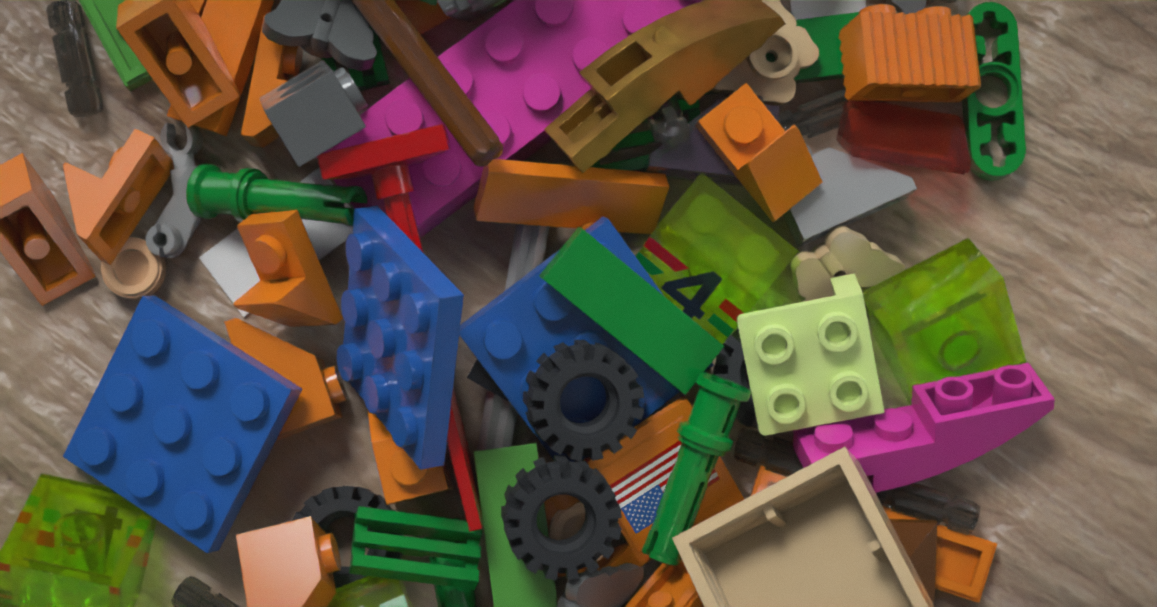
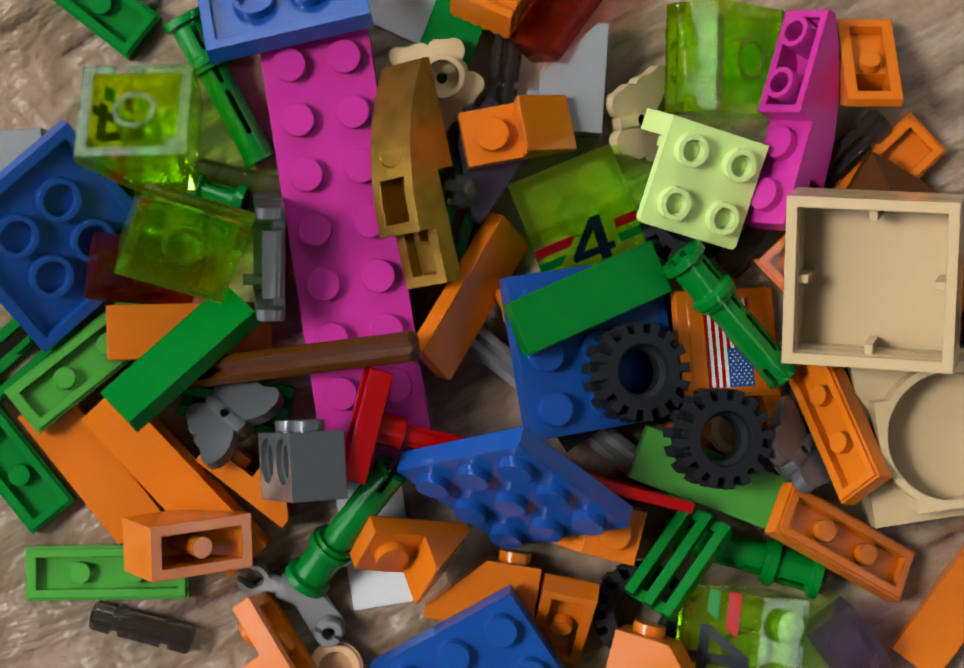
camera: 70 degrees left, 5 degrees up
(302, 465) = (565, 613): none -> orange slope
(1021, 471) = (868, 64): none -> orange slope

